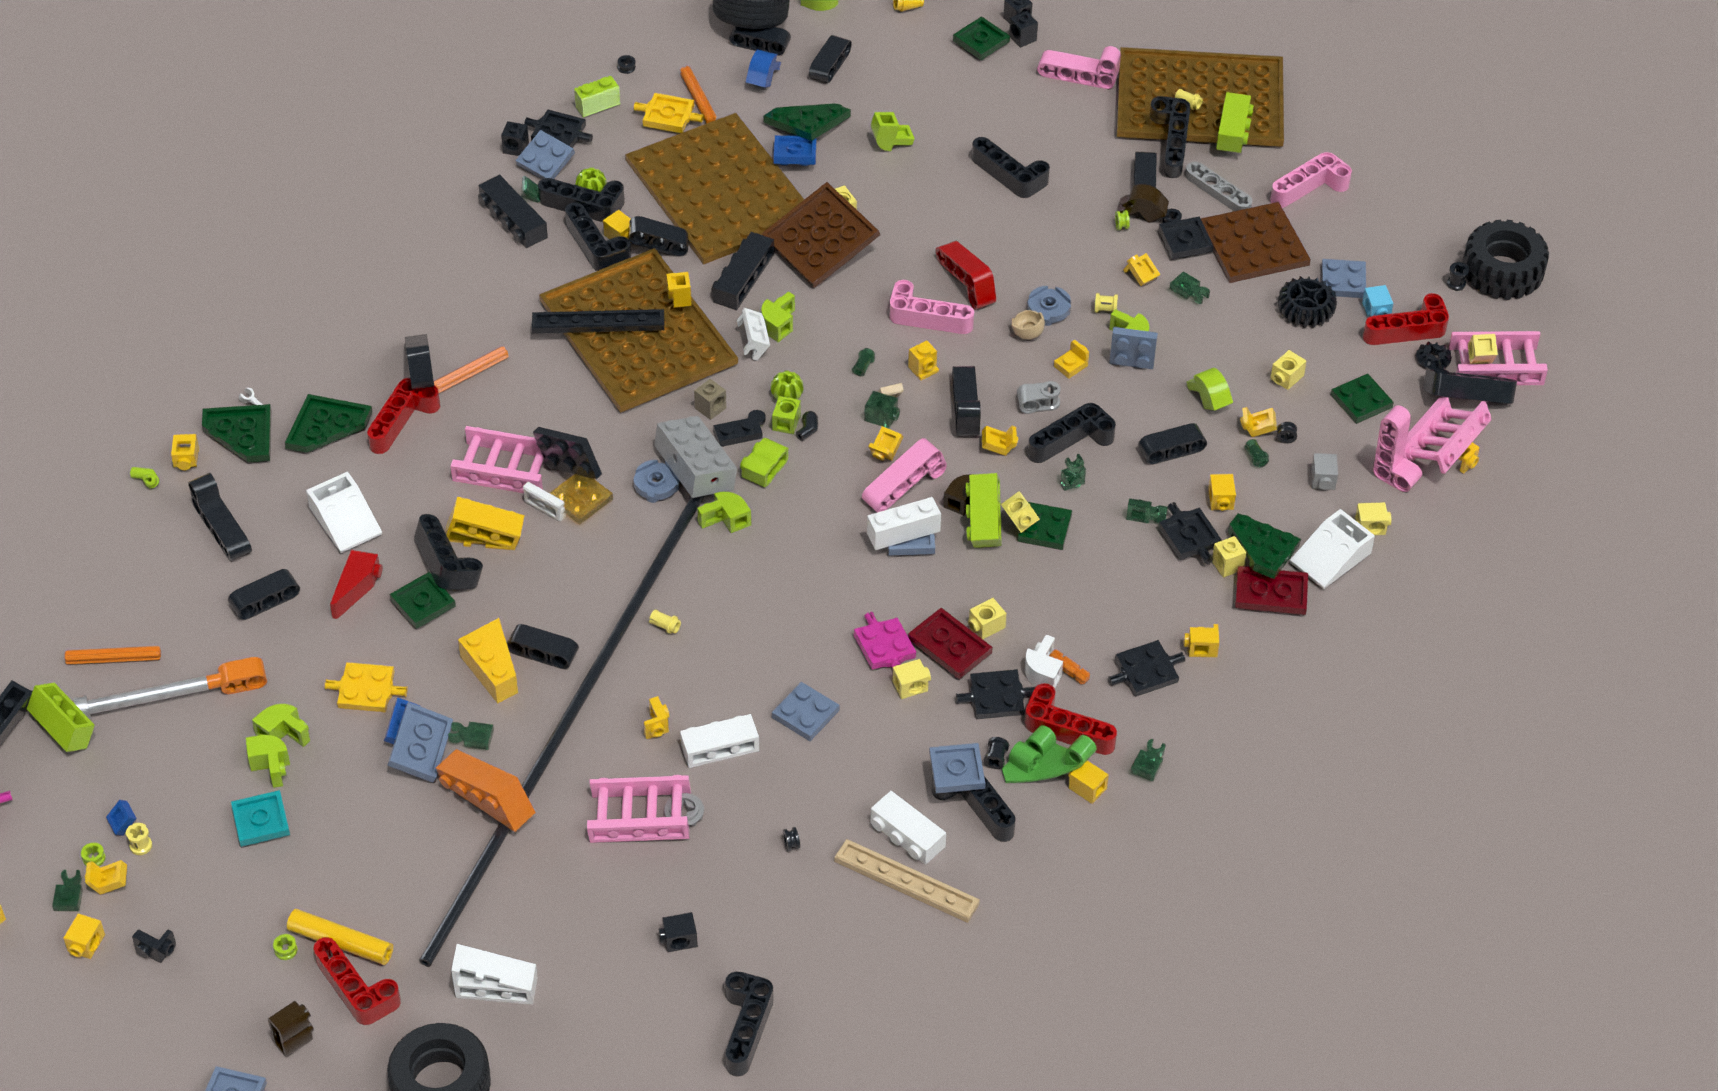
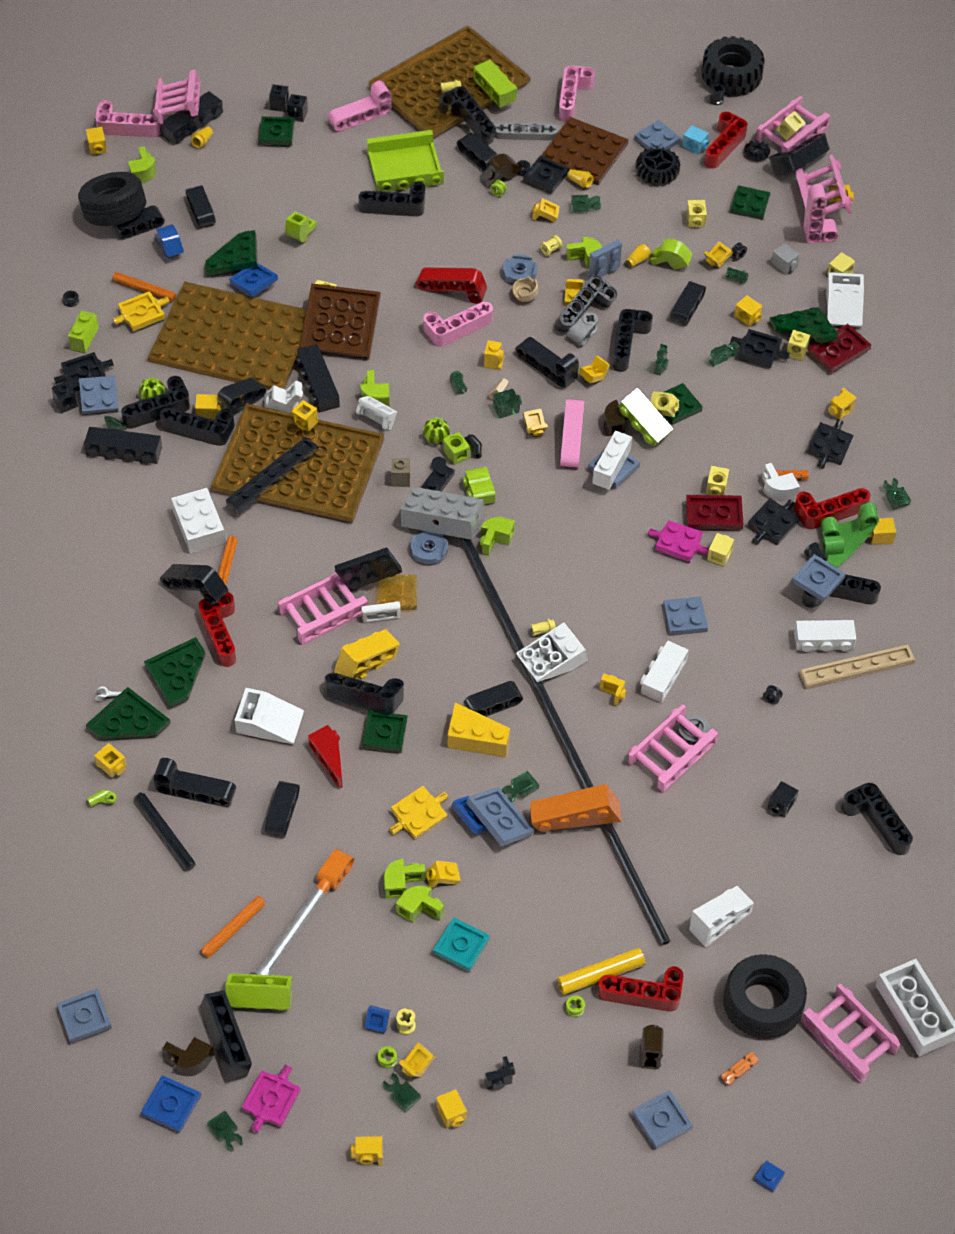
camera: 45 degrees left, 5 degrees up
(157, 540) = (165, 831): none -> black axle
(320, 750) = (442, 873): none -> yellow bracket
(492, 314) = (198, 520): none -> white brick
(640, 648) = (553, 654): none -> white slope
(688, 262) = (283, 399): none -> white brick
(1062, 374) = (580, 304): none -> black beam
(1066, 139) = (404, 160): none -> lime panel
(1179, 369) = (638, 255): none -> yellow cone
(1215, 263) = (581, 178): none -> yellow cone

